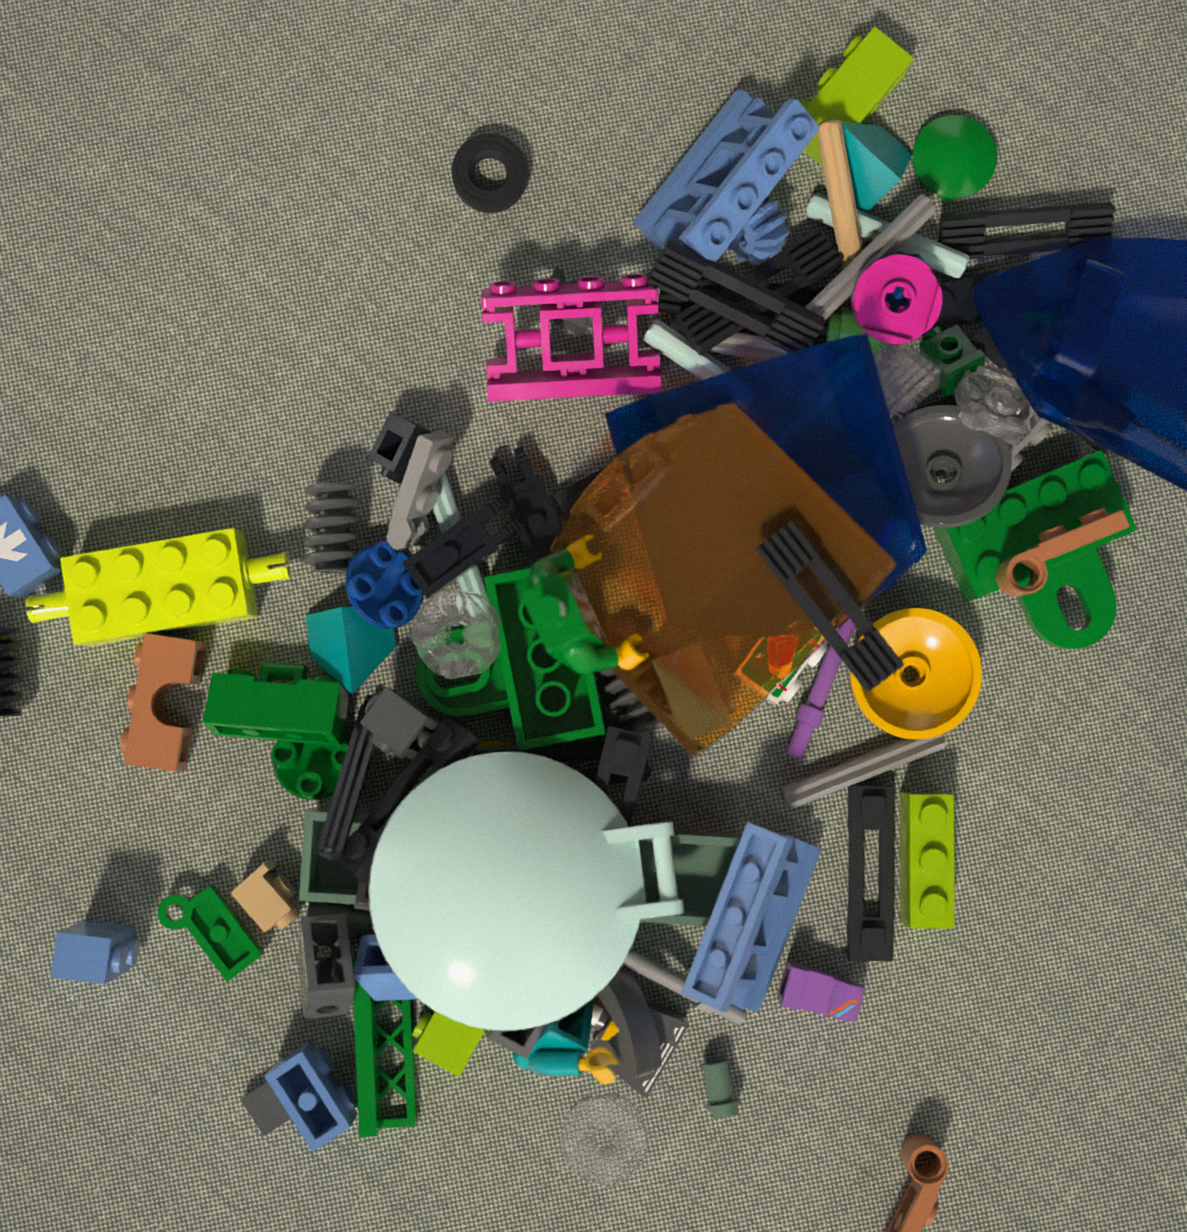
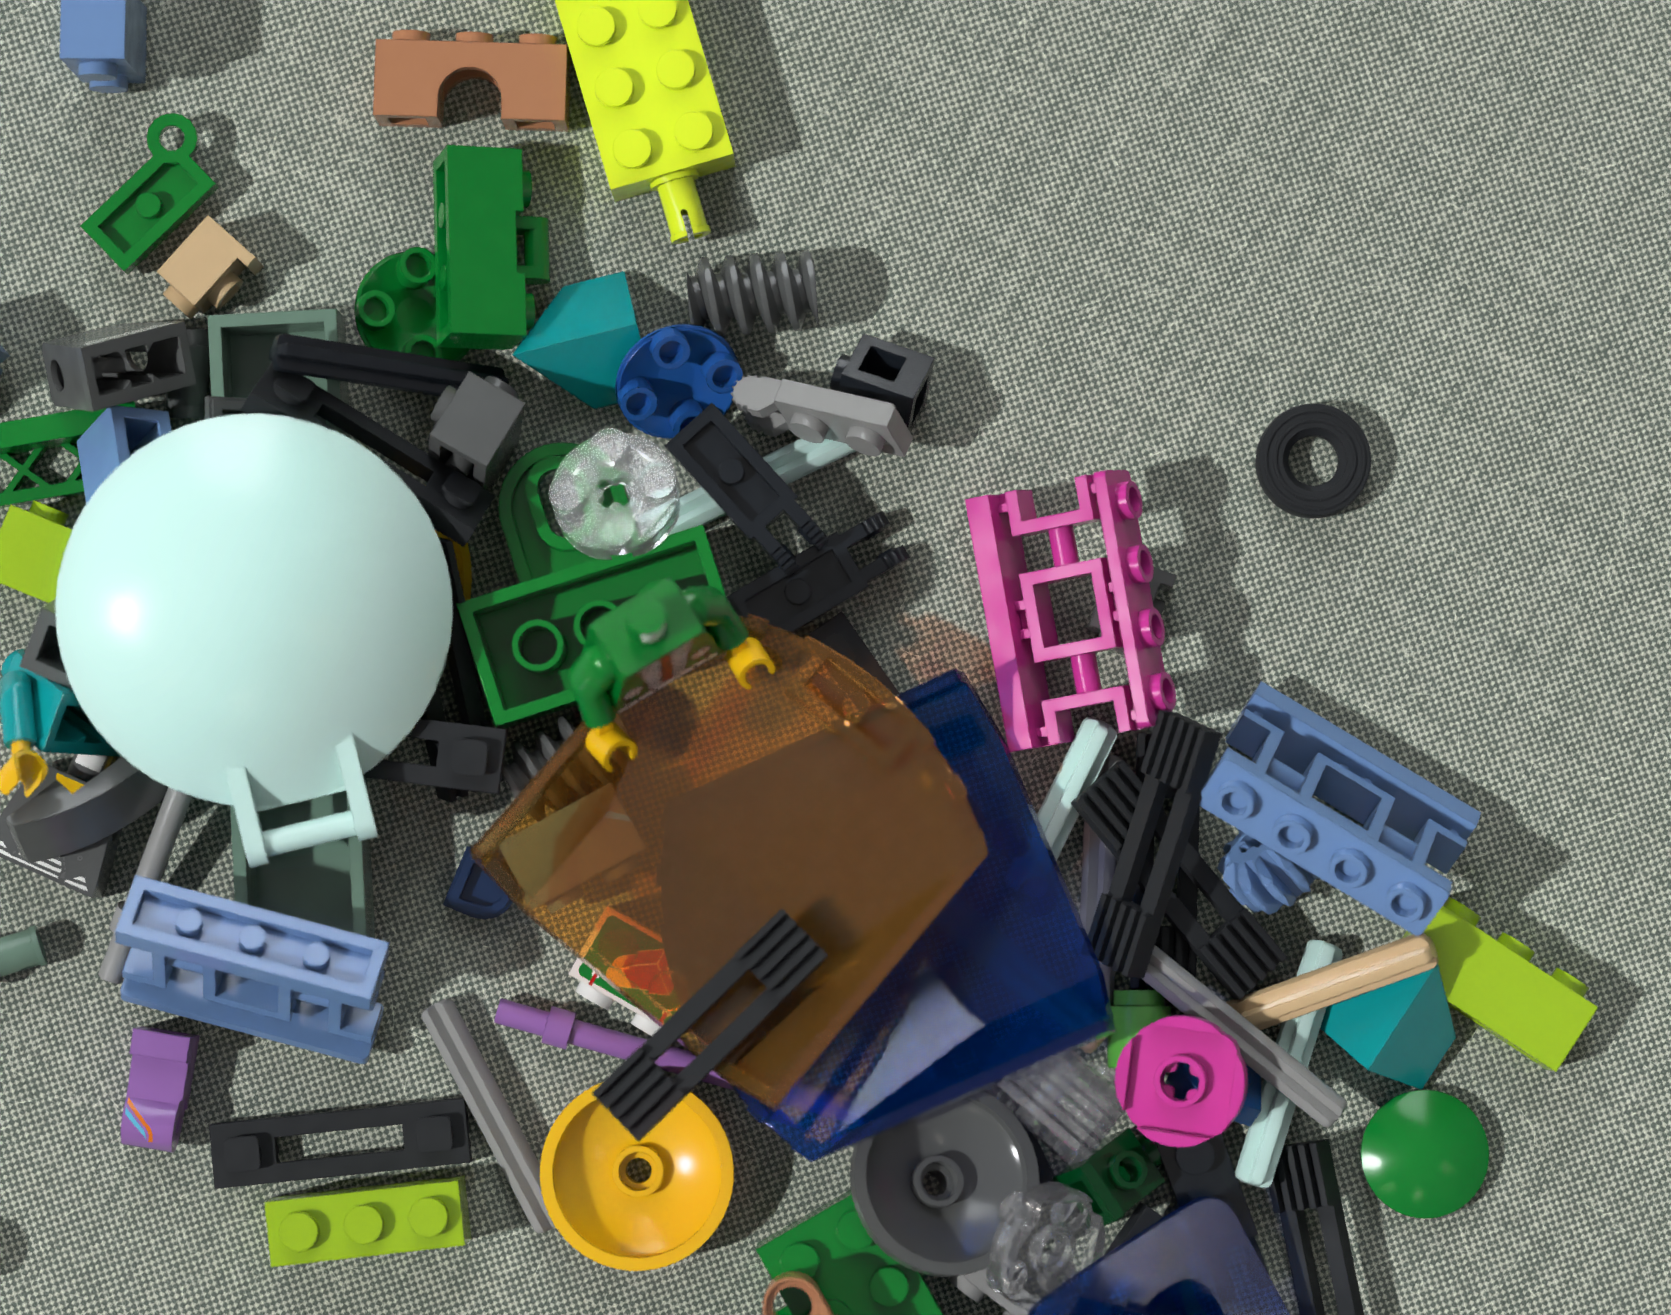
camera: 85 degrees right, 0 degrees up
(711, 763) = (475, 892): none -> dark blue tile

